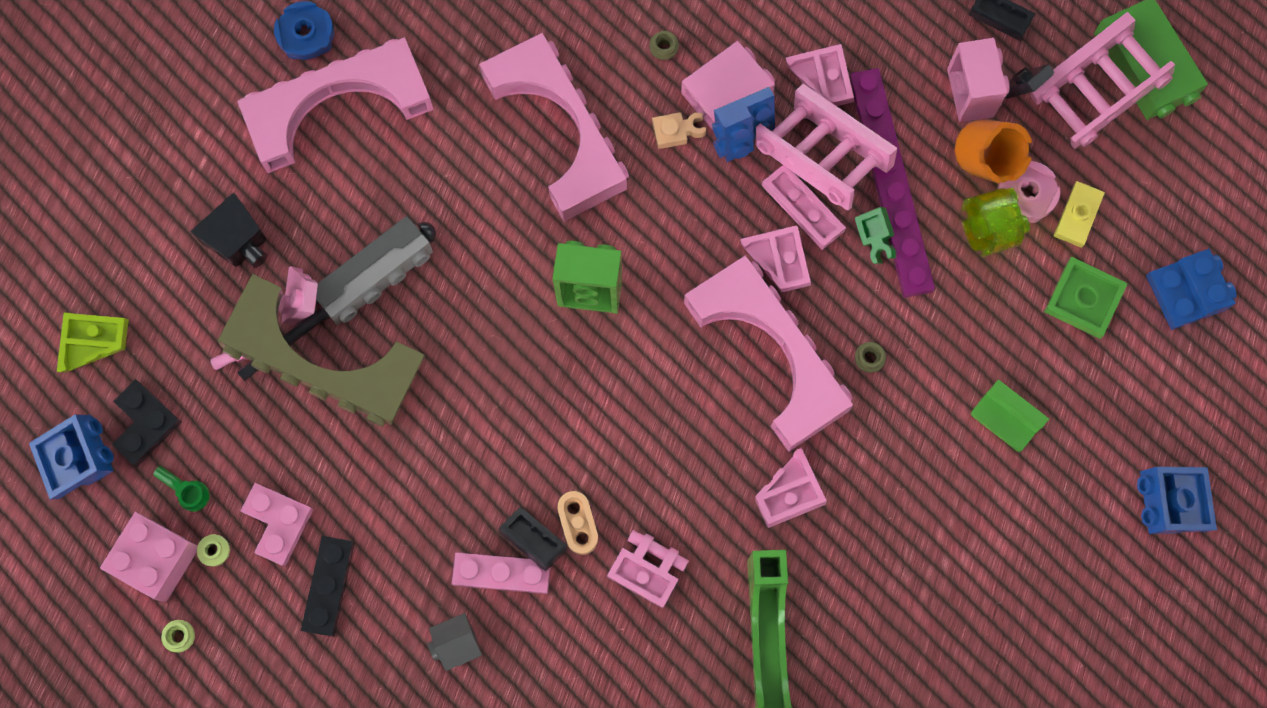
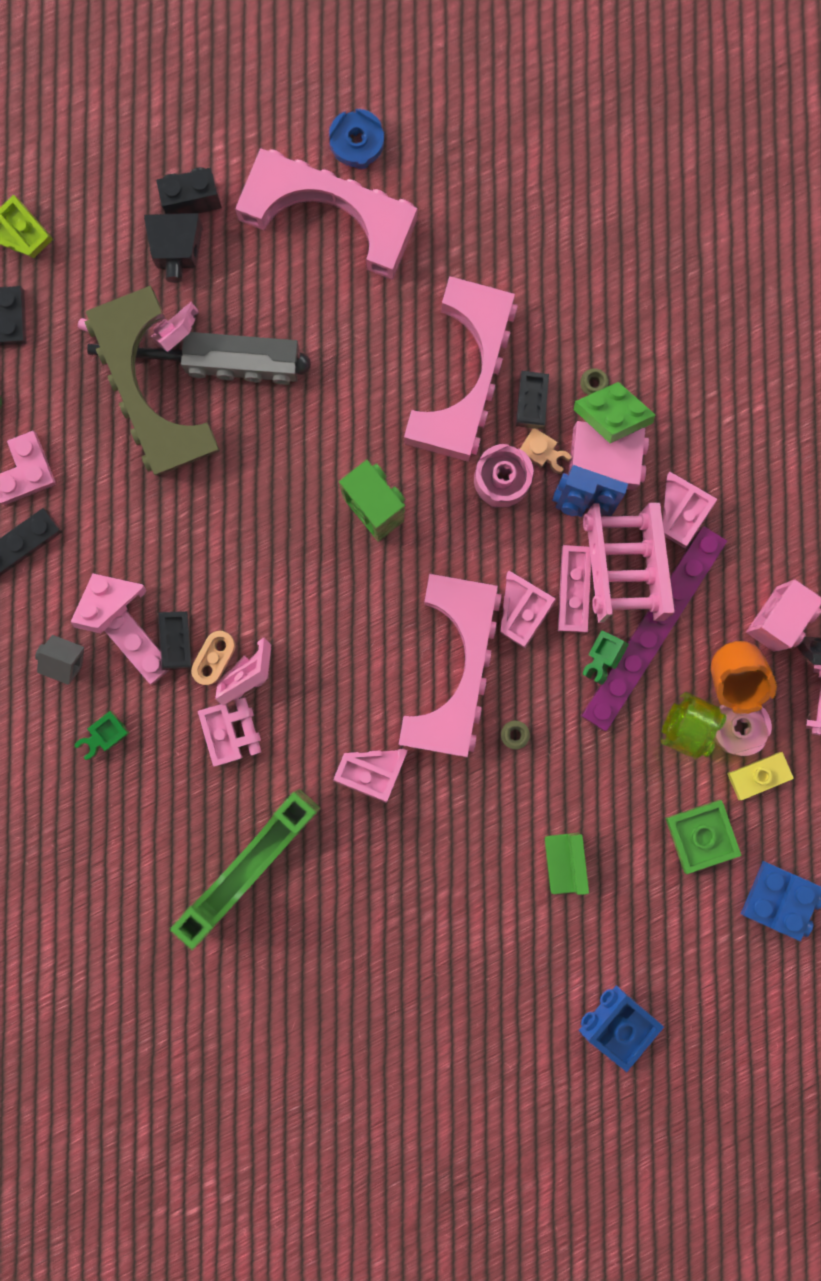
camera: 40 degrees right, 10 degrees up
(209, 184) = (189, 192): none -> black brick
(447, 561) = (104, 601): none -> bright pink wing
(548, 666) = (105, 733): none -> green plate
(617, 510) = (245, 675): none -> bright pink wing
(631, 99) = (532, 400): none -> black plate
(652, 163) = (508, 461): none -> bright pink brick
(702, 50) = (614, 412): none -> bright green plate

